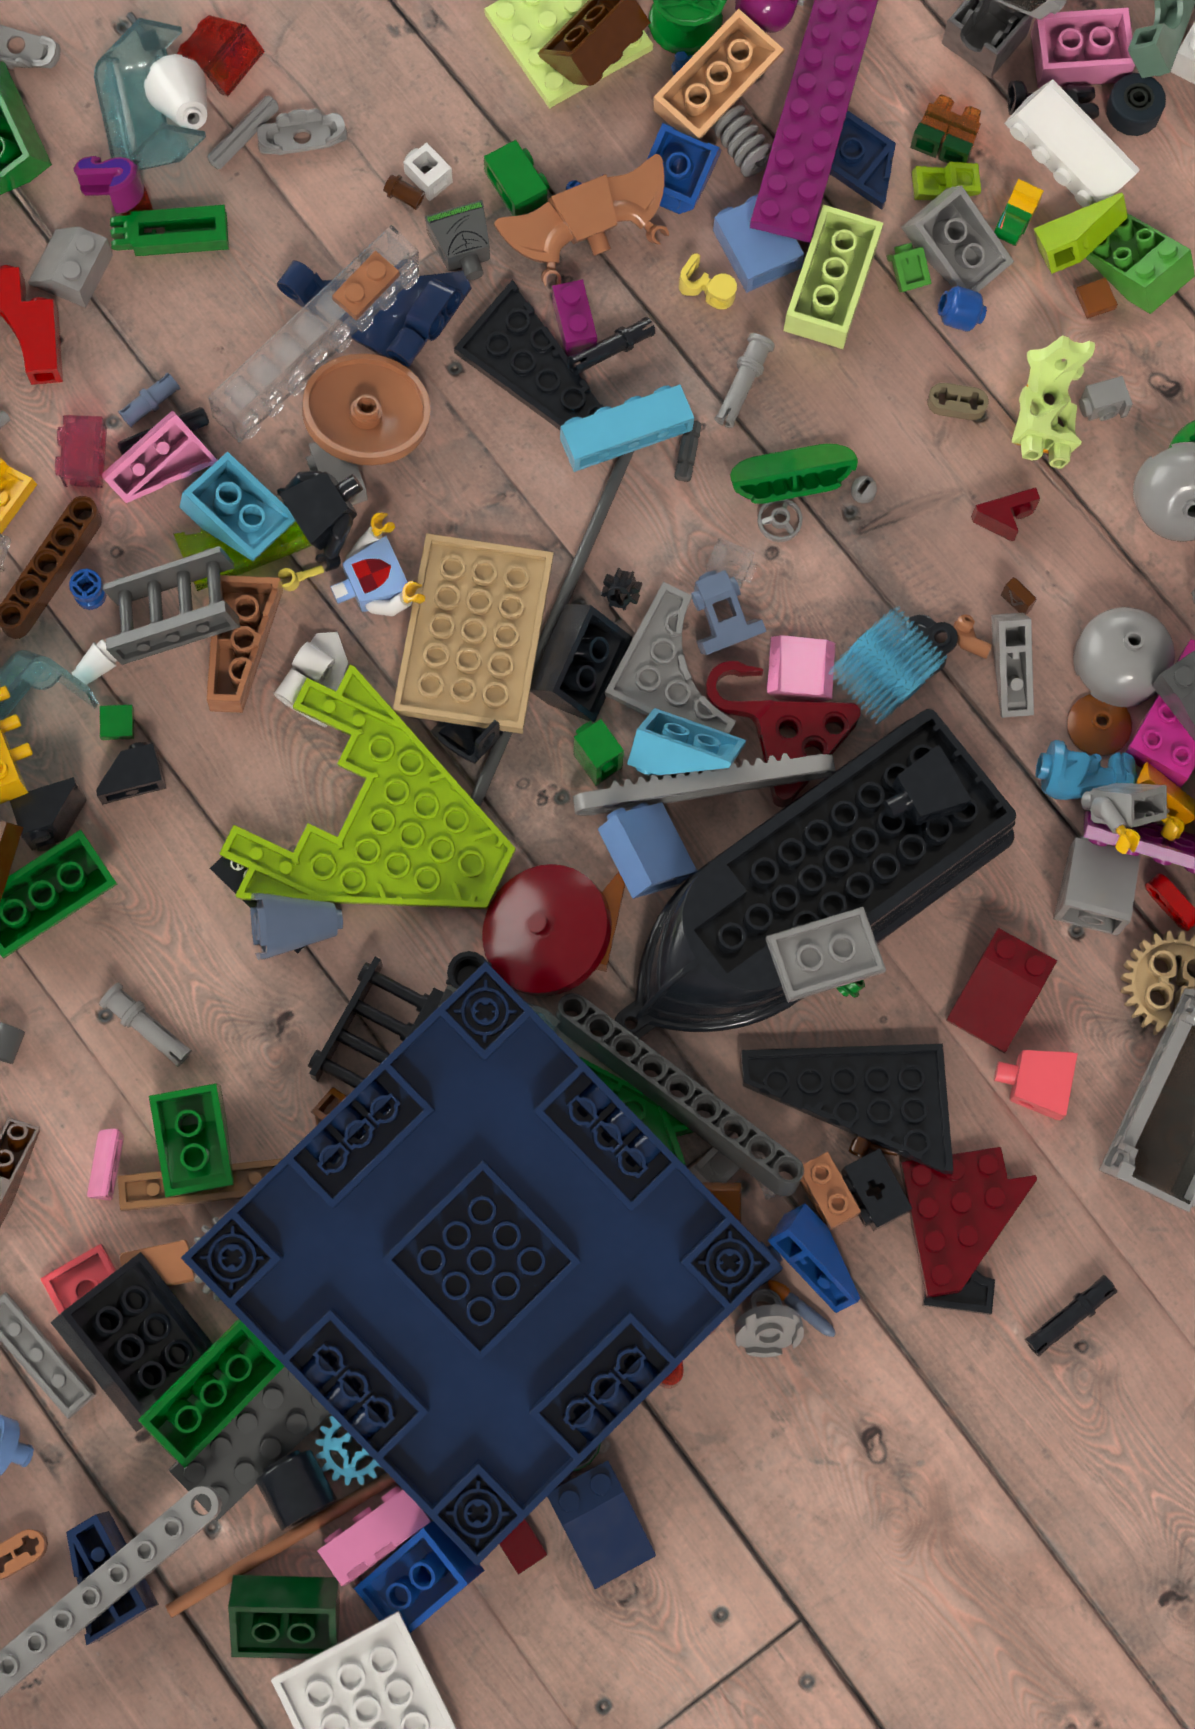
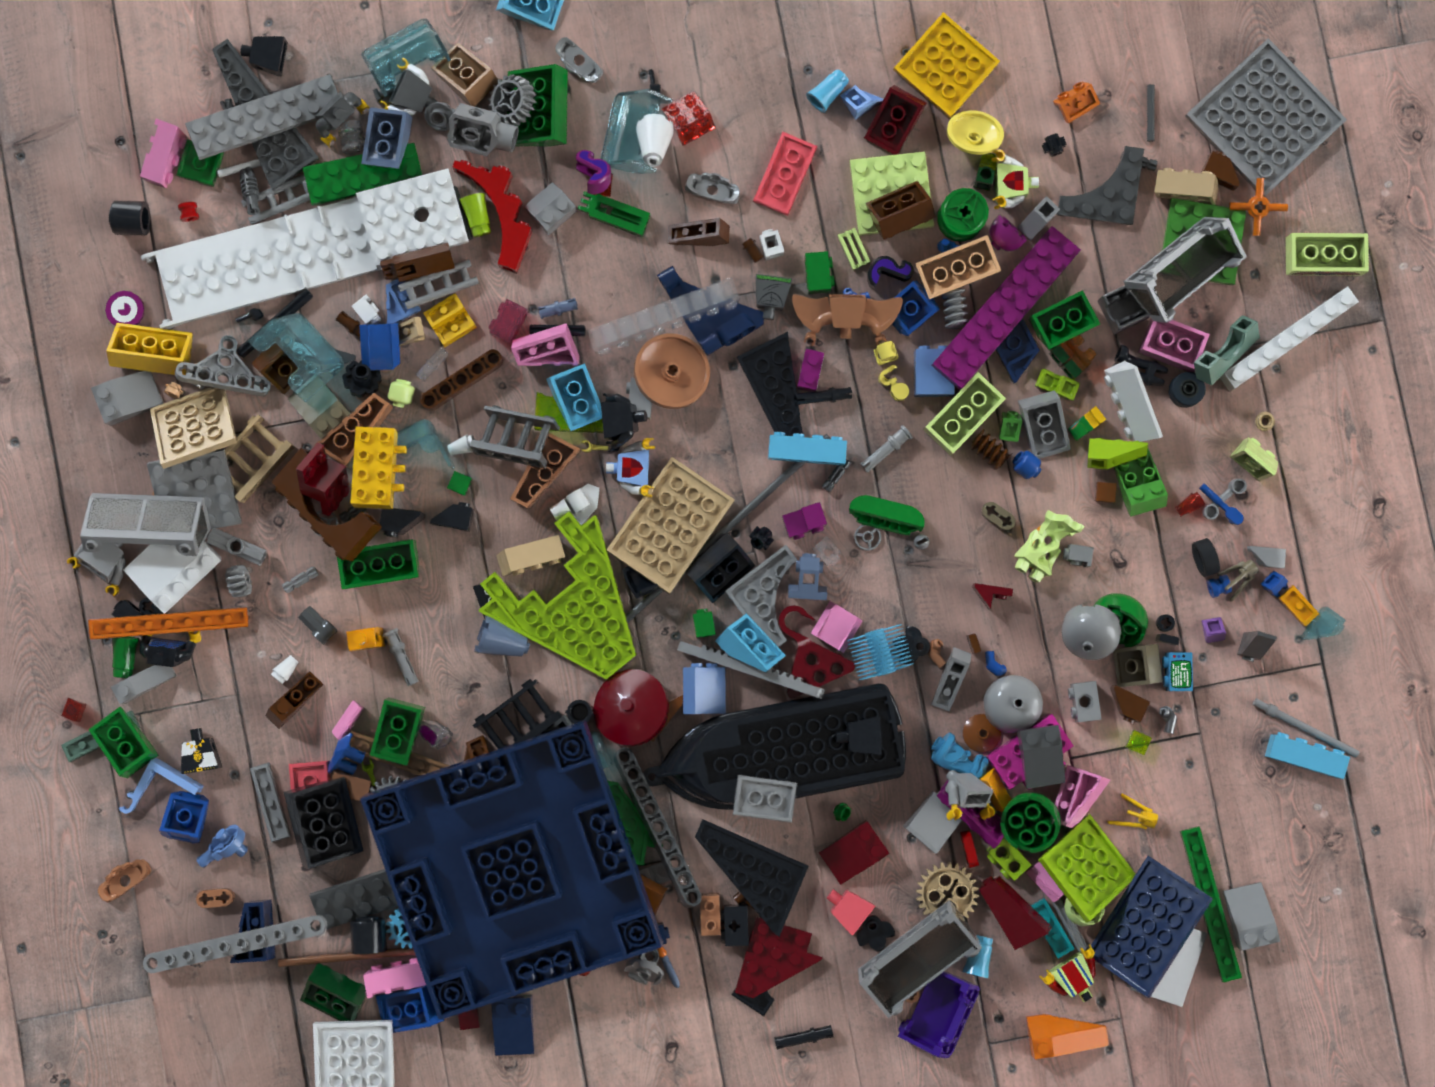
camera: 25 degrees right, 10 degrees up
(73, 1022) = (365, 639): none -> light orange torso
(89, 596) = (476, 402): blue wheel -> none
(120, 1207) = (343, 750): none -> blue connector
(175, 1225) = (369, 769): none -> lime hand
(211, 1393) = (345, 870): green slope -> none
(242, 132) = (681, 172): light grey axle -> none
(256, 1117) = (435, 734): none -> clear rock
(277, 776) = (530, 556): none -> tan wedge
(315, 199) = (700, 233): none -> reddish brown slope
(365, 285) = (701, 306): nougat plate -> none
(398, 69) = (785, 173): none -> coral tile
(560, 119) = (847, 234): none -> yellowish green tile
(619, 127) = (889, 267): none -> black animal
(676, 240) = (887, 353): none -> light yellow leg
(681, 527) = (804, 520): none -> magenta brick
(814, 1255) = (687, 943): blue slope -> none
(897, 311) = (990, 450): none -> reddish brown piece
(908, 83) = (1064, 320): none -> green slope
(951, 938) = (842, 812): none -> green plate
(1064, 617) = (993, 666): none -> blue arm
(1100, 1104) = (877, 935): none -> black plate

